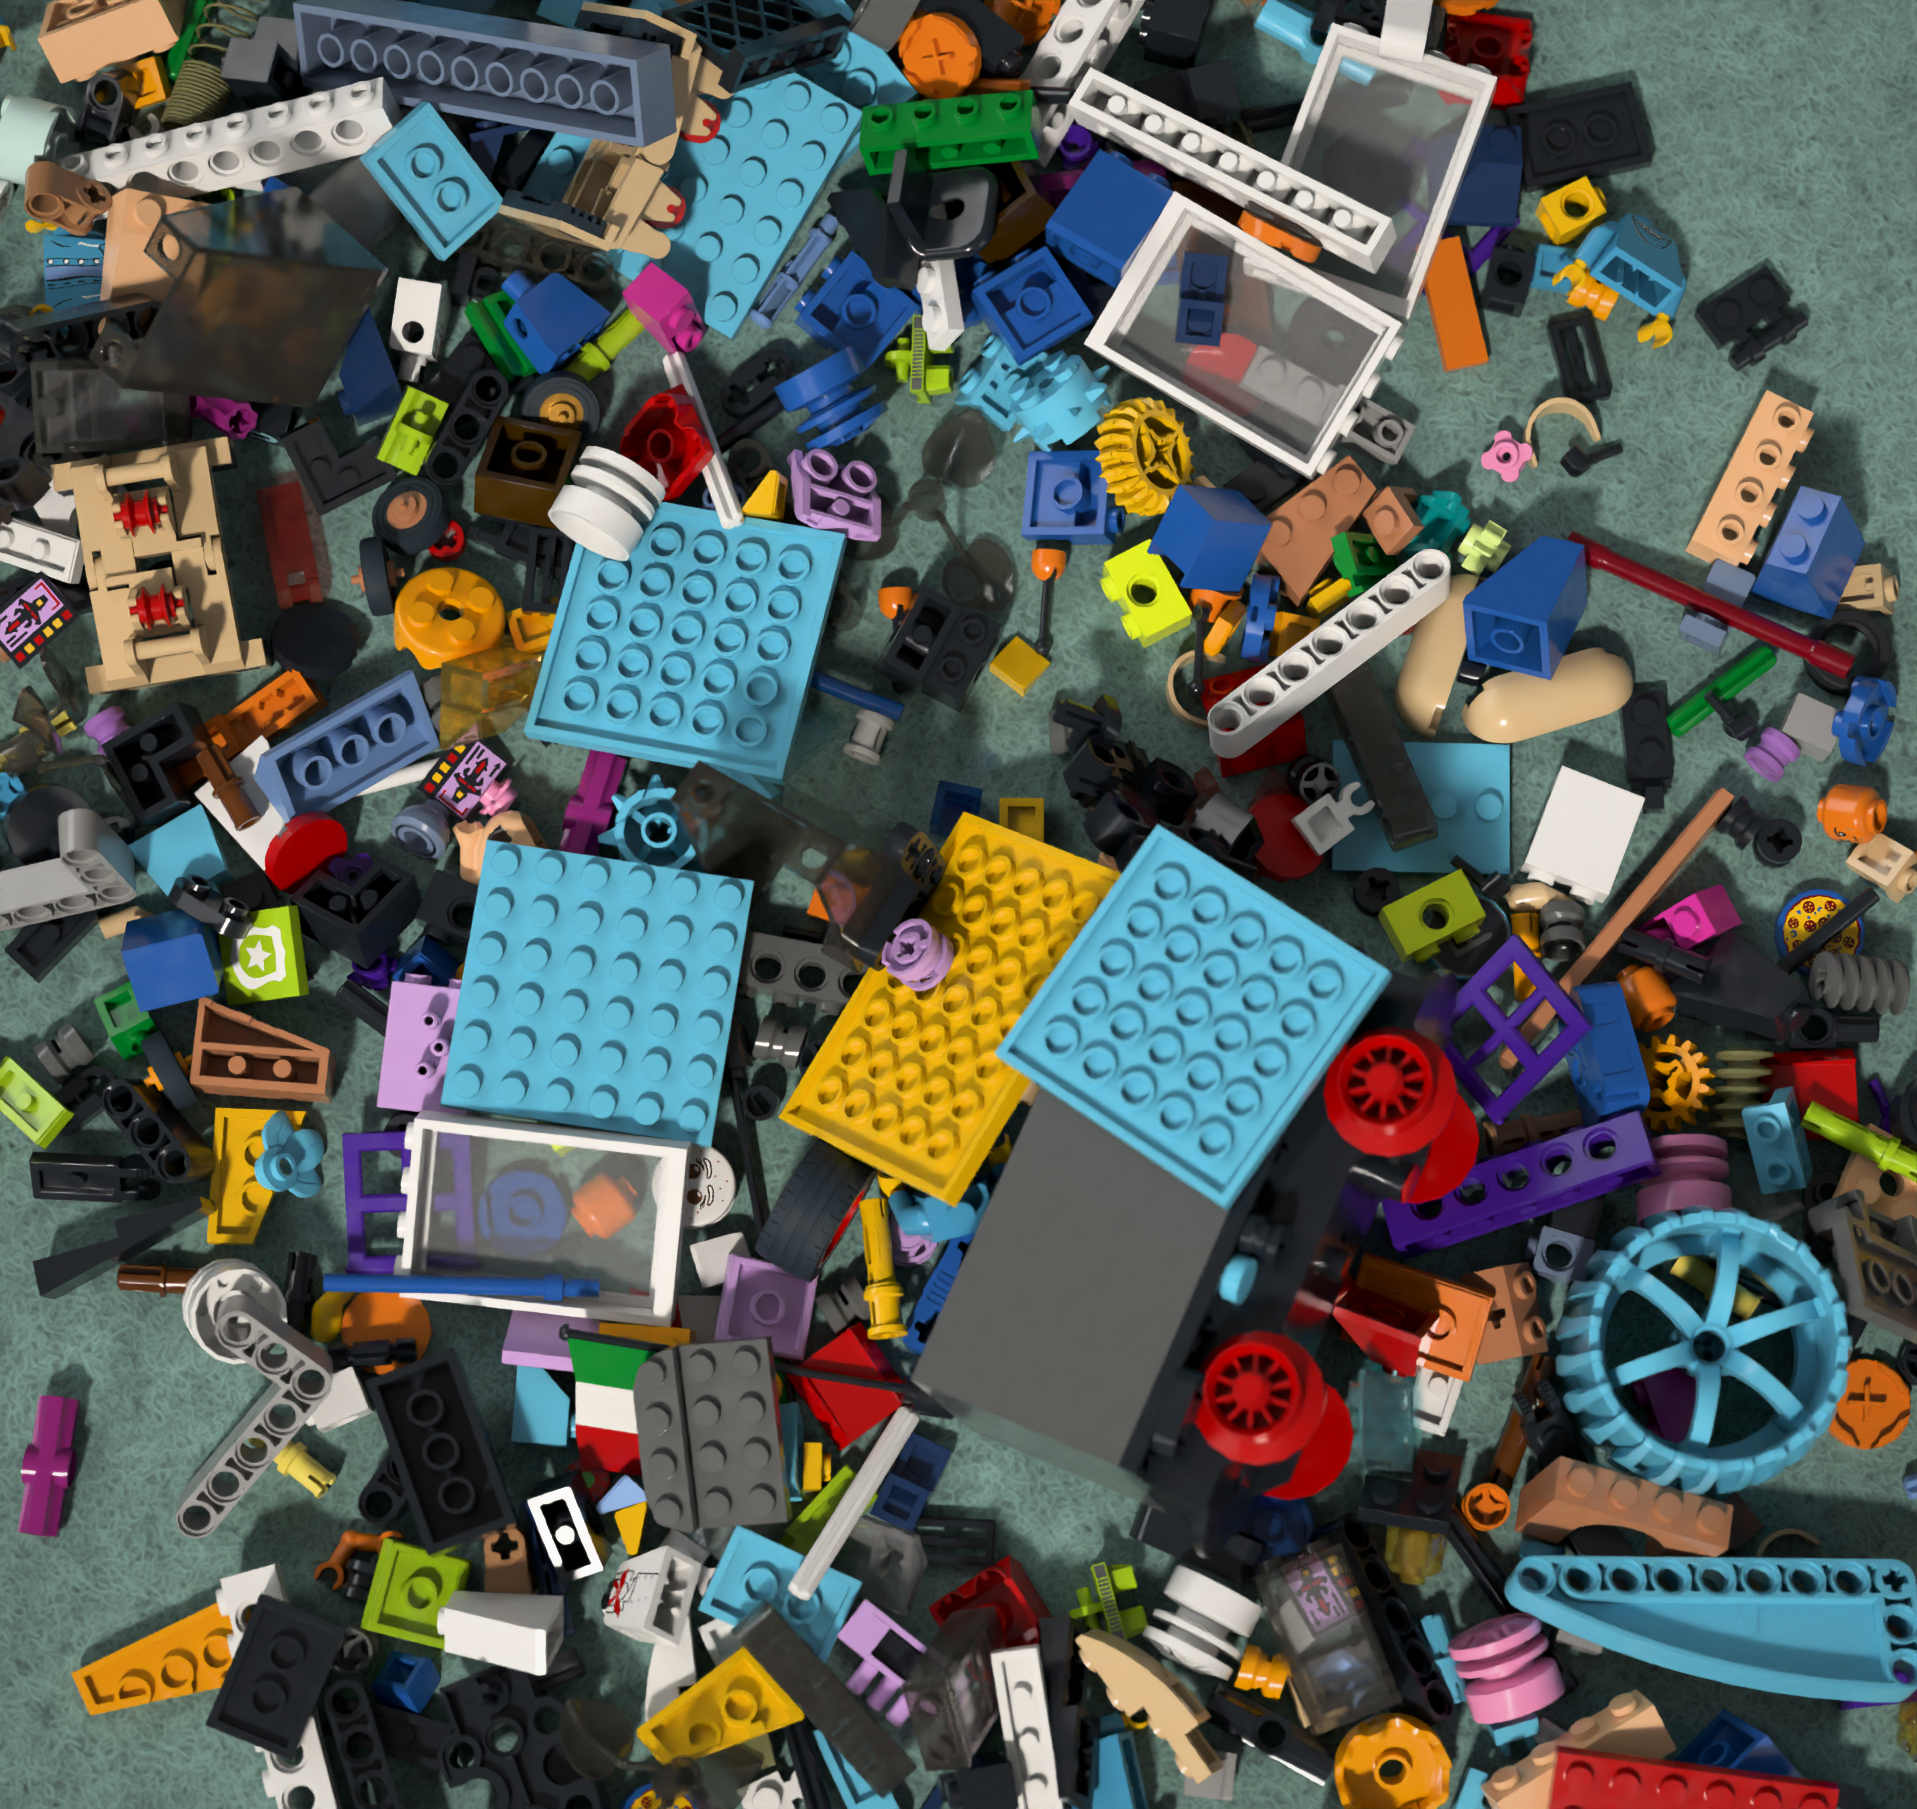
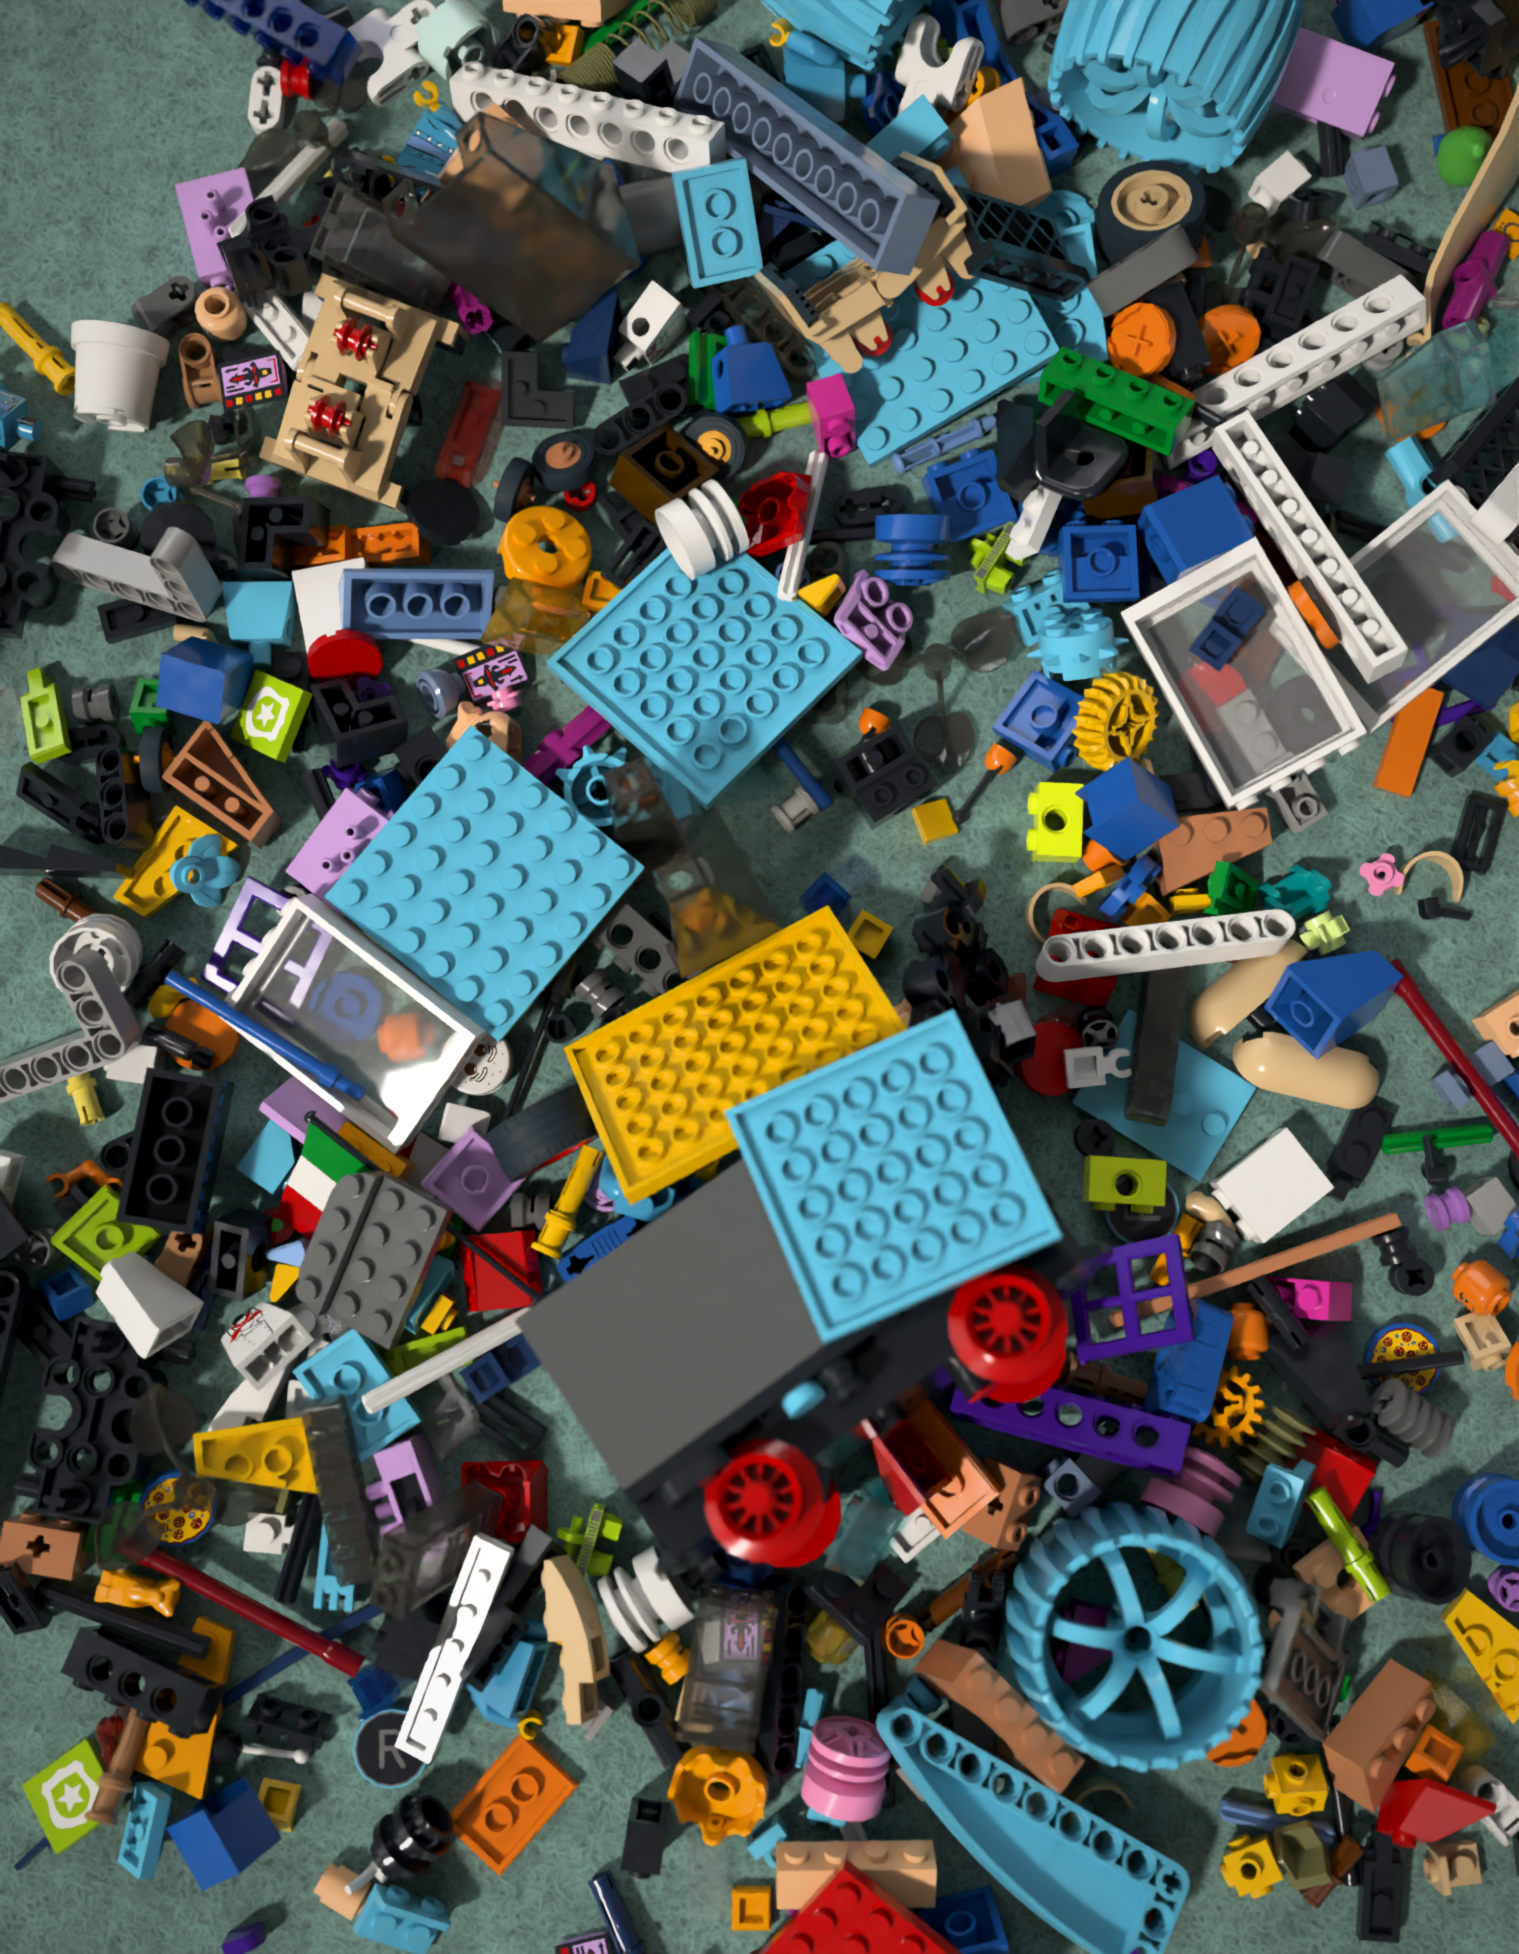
camera: 30 degrees right, 5 degrees up
(14, 686) = (221, 429): none -> black hinge
(62, 199) = (447, 87): medium nougat piece -> none
(218, 912) = (250, 659): black plate -> none
(228, 787) = (315, 580): reddish brown axle -> none
(411, 430) = (600, 399): lime hips -> none
(918, 954) = (727, 993): lavender wheel -> none
(920, 873) = (765, 933): black beam -> none
(1200, 614) = (1087, 861): black hinge -> none
(1393, 518) = (1271, 872): nougat bracket -> none
(1492, 887) = (1181, 1184): black hand -> none

